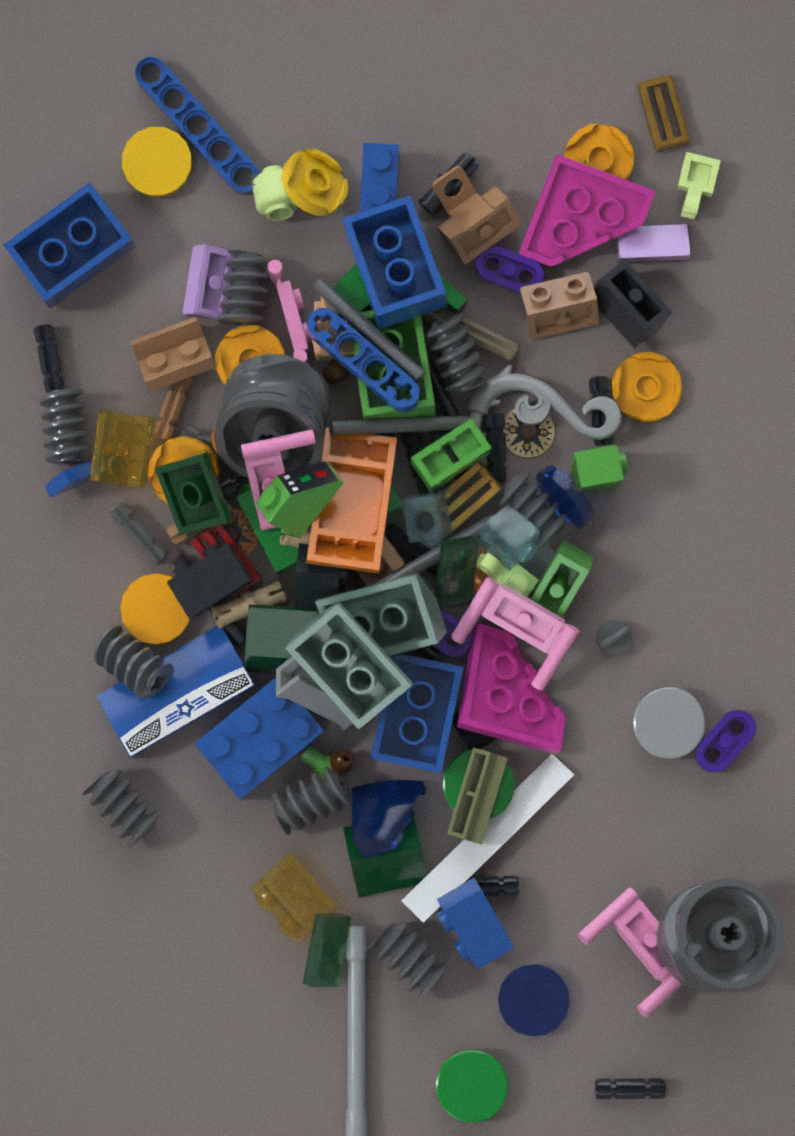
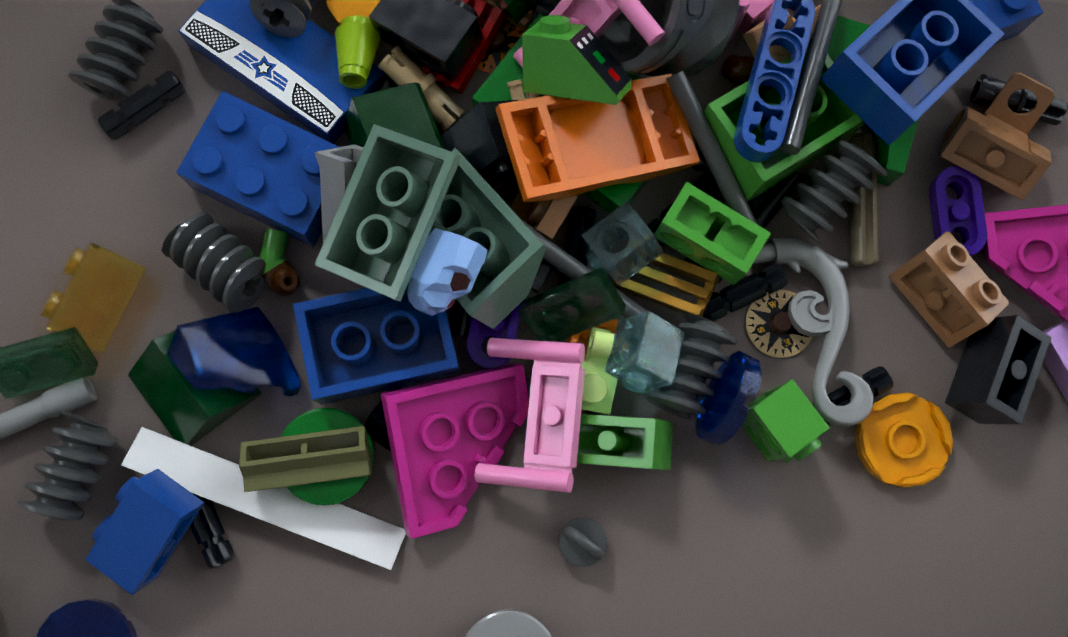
camera: 60 degrees right, 5 degrees down
(167, 807) = (141, 105): none -> black axle
(202, 638) = (356, 50): none -> lime cone
(404, 646) = (444, 271): none -> light blue rock

